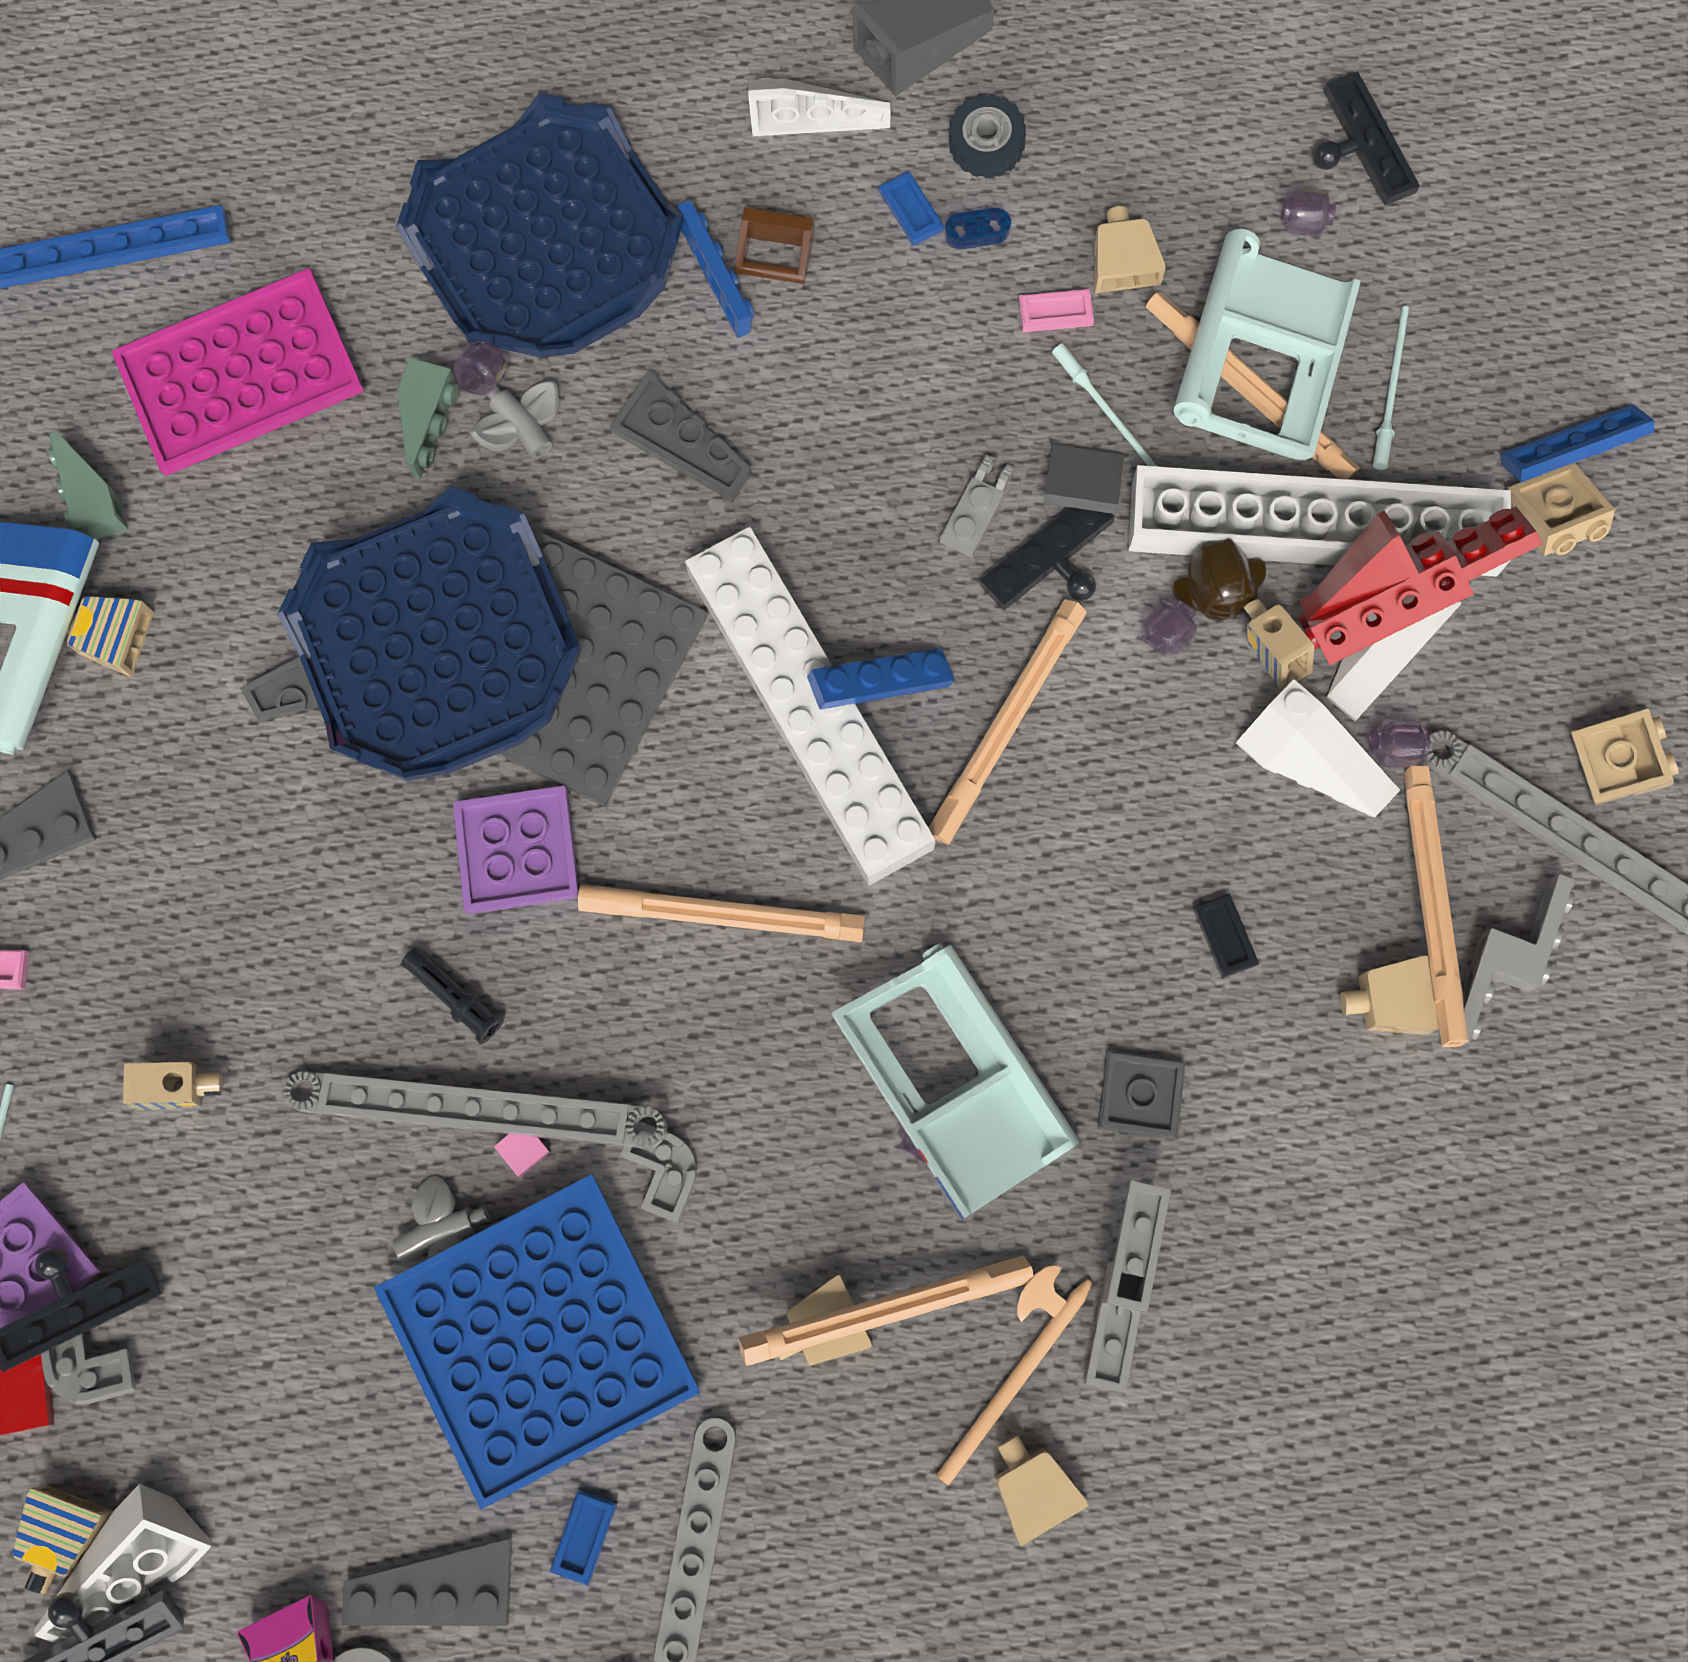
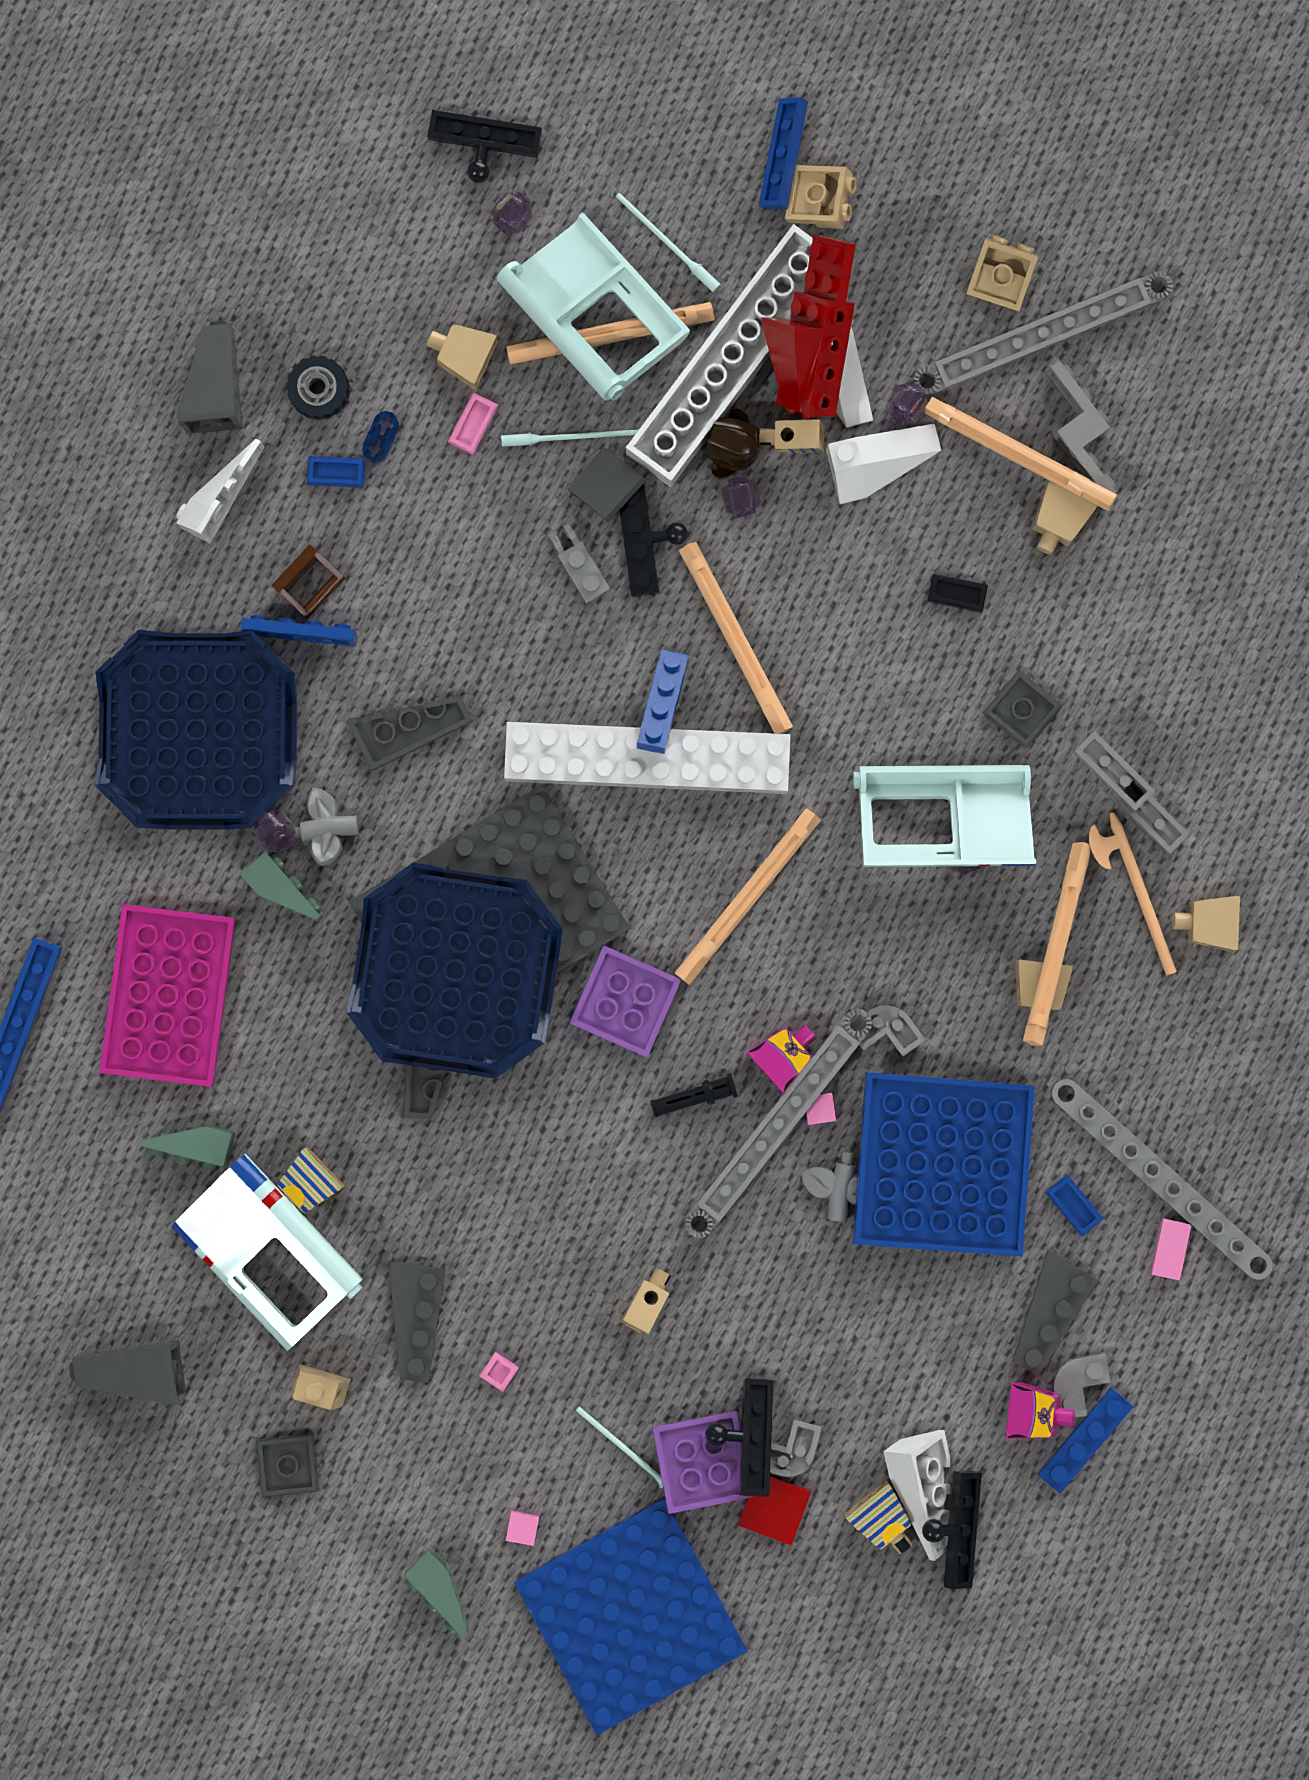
camera: 60 degrees left, 10 degrees up
(557, 1065) = (783, 1055): none -> dark pink torso

